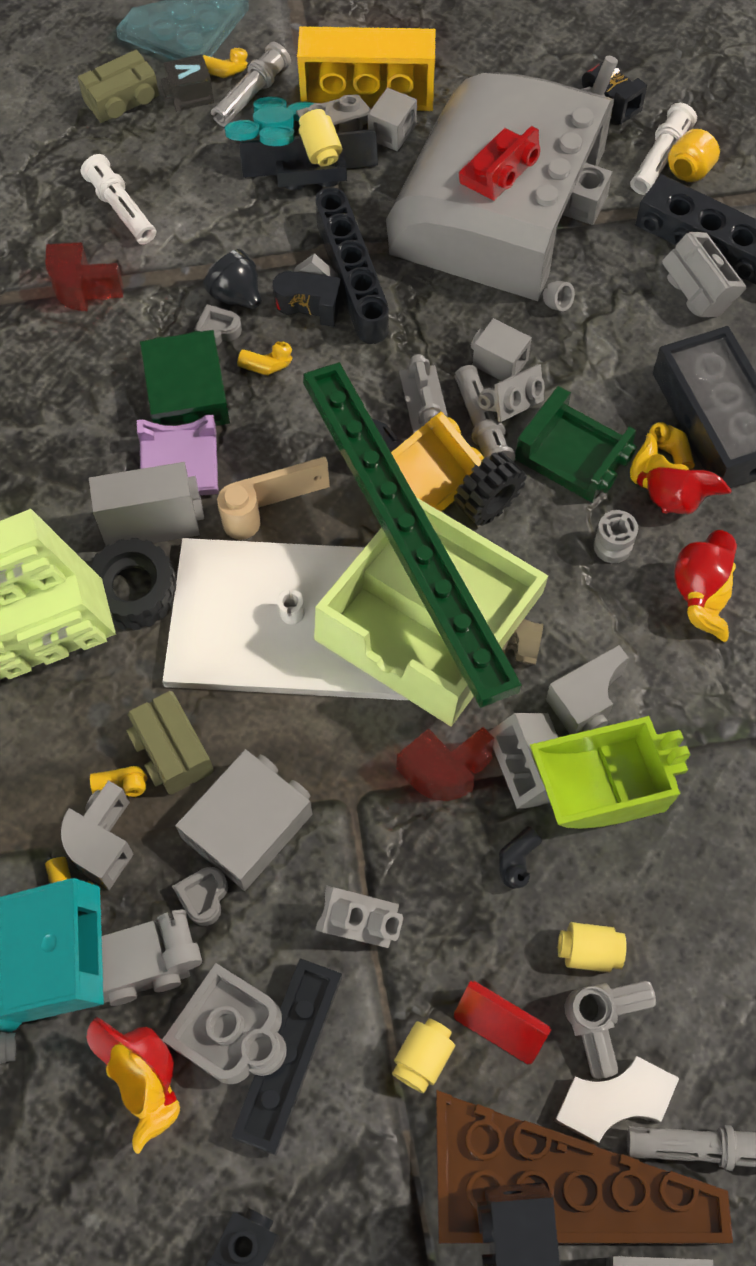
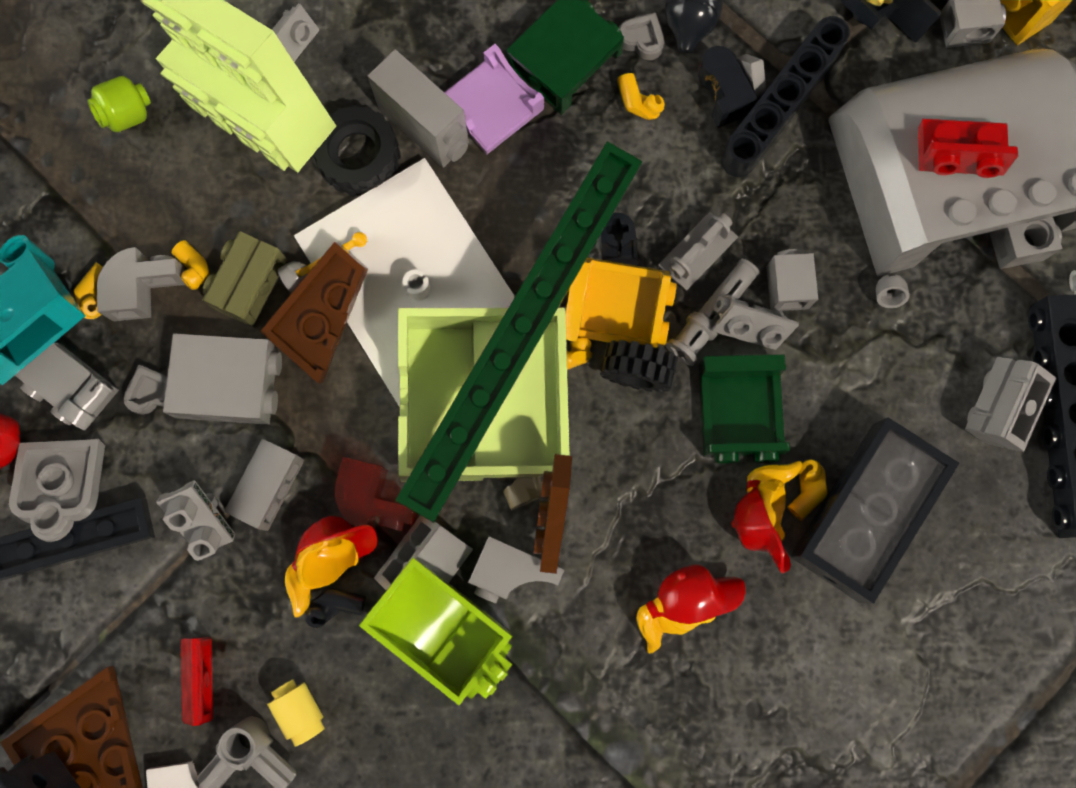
camera: 55 degrees right, 15 degrees up
(202, 700) = (296, 271): none -> hinge
(240, 500) = (482, 181): tan door -> none
(248, 699) = (317, 312): none -> reddish brown wing
(365, 846) = (264, 485): none -> light grey brick
(423, 1055) = (128, 639): light yellow brick -> none
(466, 830) = (324, 555): none -> yellow hair
(571, 607) = (553, 512): none -> reddish brown wing
(615, 536) = (669, 501): light grey wheel -> none

